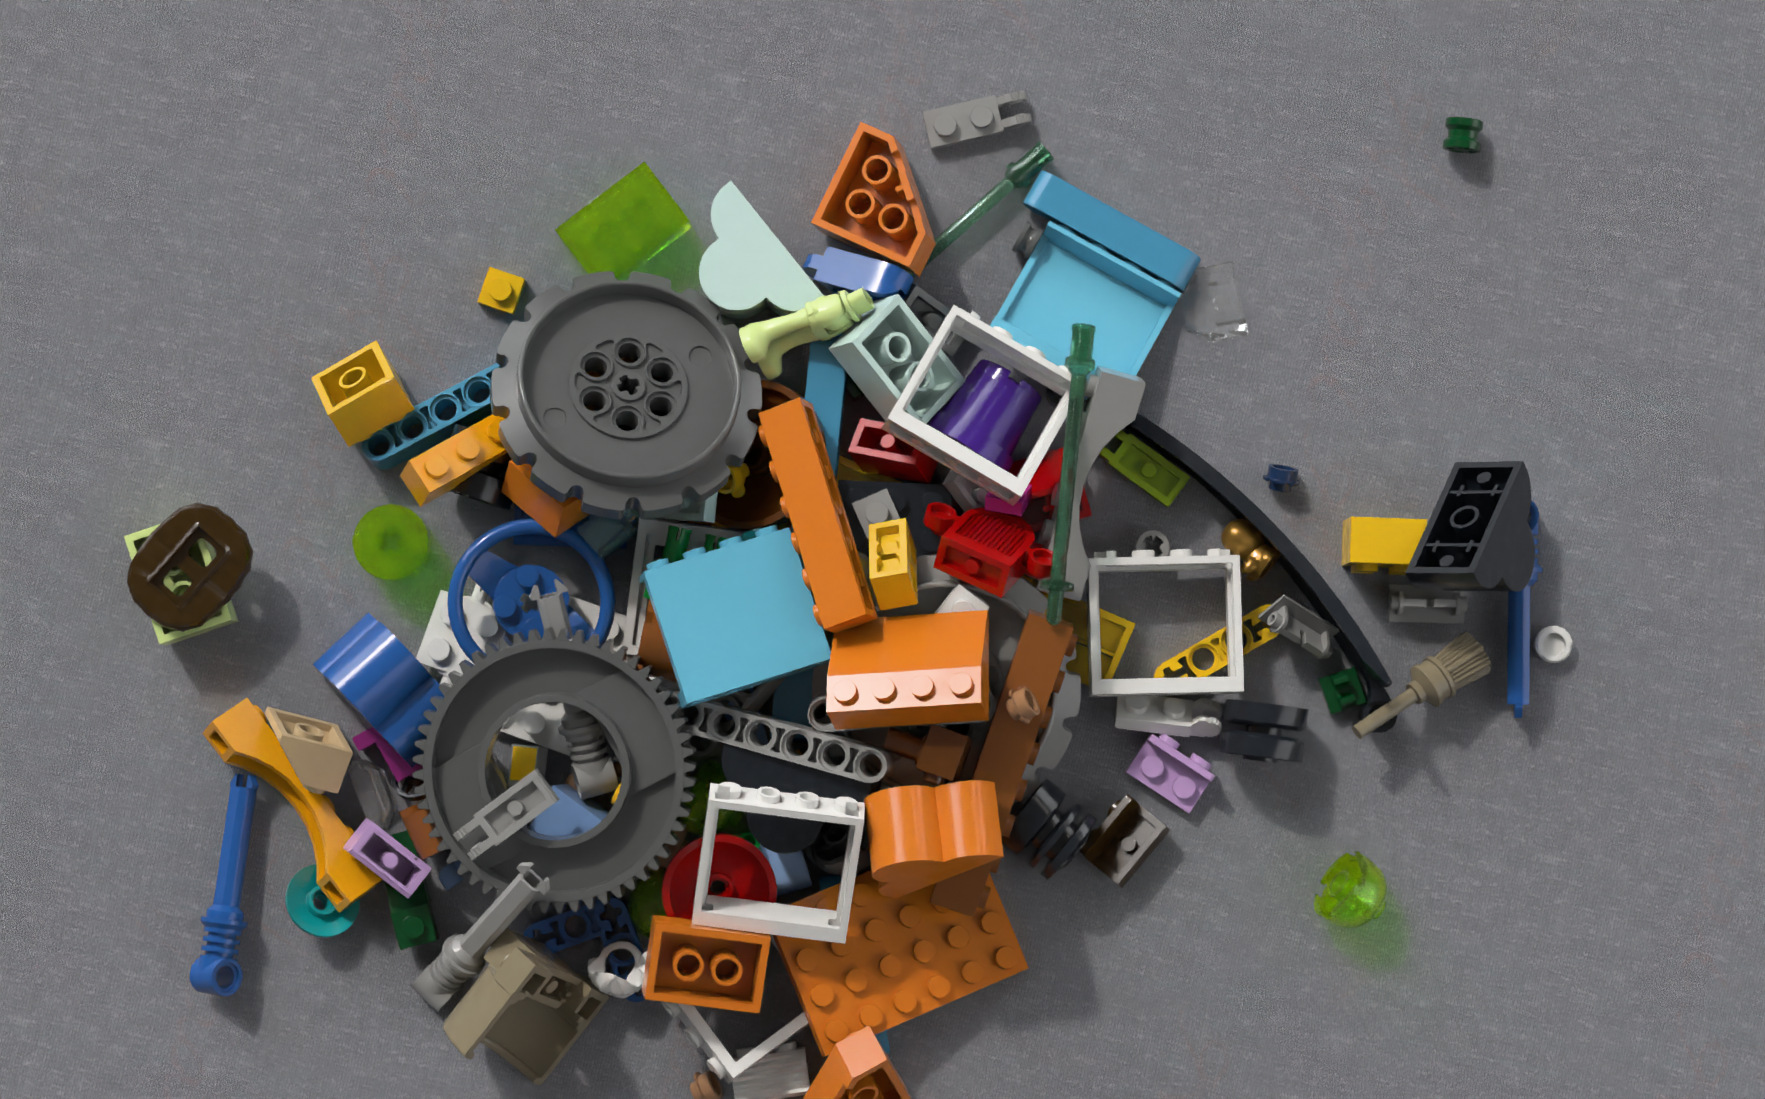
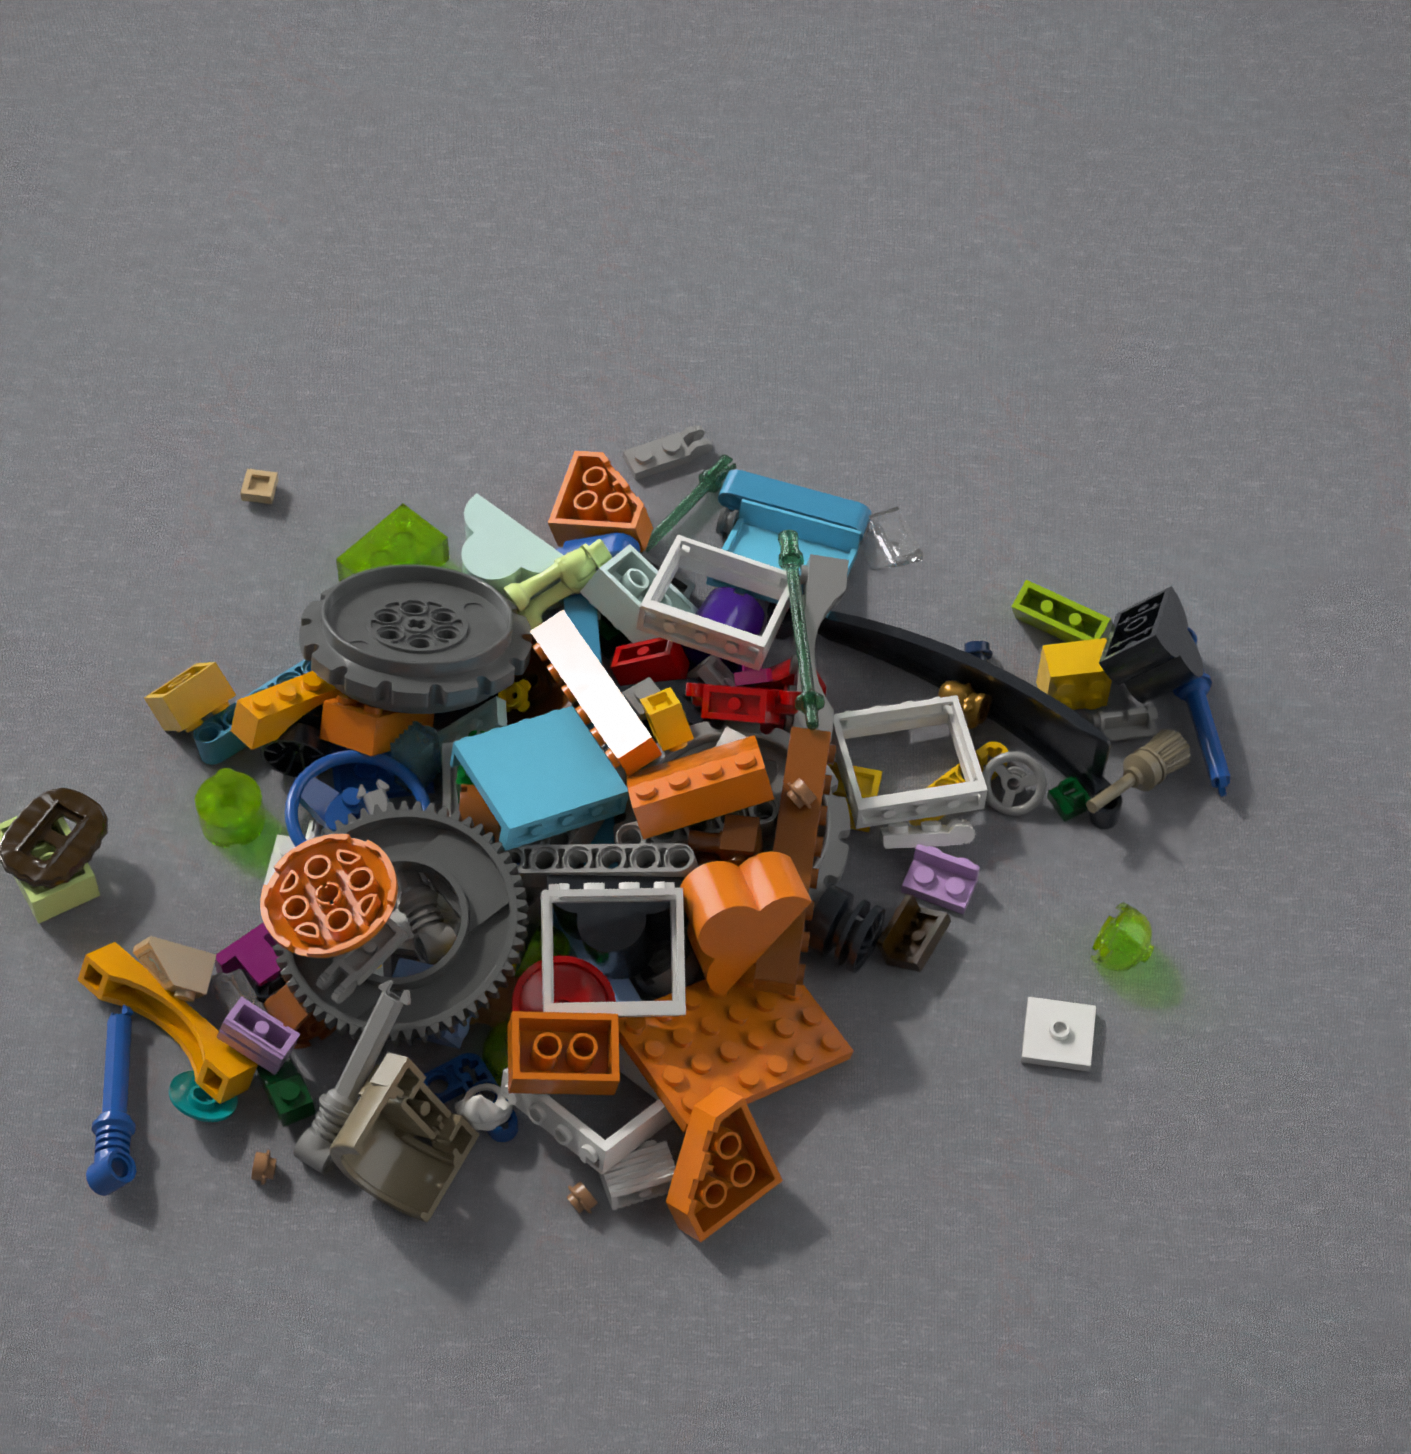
camera: 10 degrees left, 30 degrees down
(377, 991) = (263, 1167): none -> medium nougat plate
(381, 683) = (226, 896): blue brick -> none
(442, 740) = (324, 869): none -> orange brick
(448, 875) = (316, 1060): medium blue hand -> none
(480, 88) = (259, 486): none -> tan plate
(501, 291) = (291, 622): yellow plate -> none
(1146, 468) = (857, 660): lime hinge -> none
(1256, 984) = (1058, 1034): none -> white plate
(1263, 731) = (1012, 824): black wheel -> none
(1283, 663) = (1038, 778): none -> light grey piece
(1300, 626) = (1010, 738): light grey hinge -> none
(1390, 456) = (1059, 615): none -> lime brick
(1462, 135) = (1057, 404): dark green wheel -> none
(1552, 644) = (1236, 739): white tile -> none

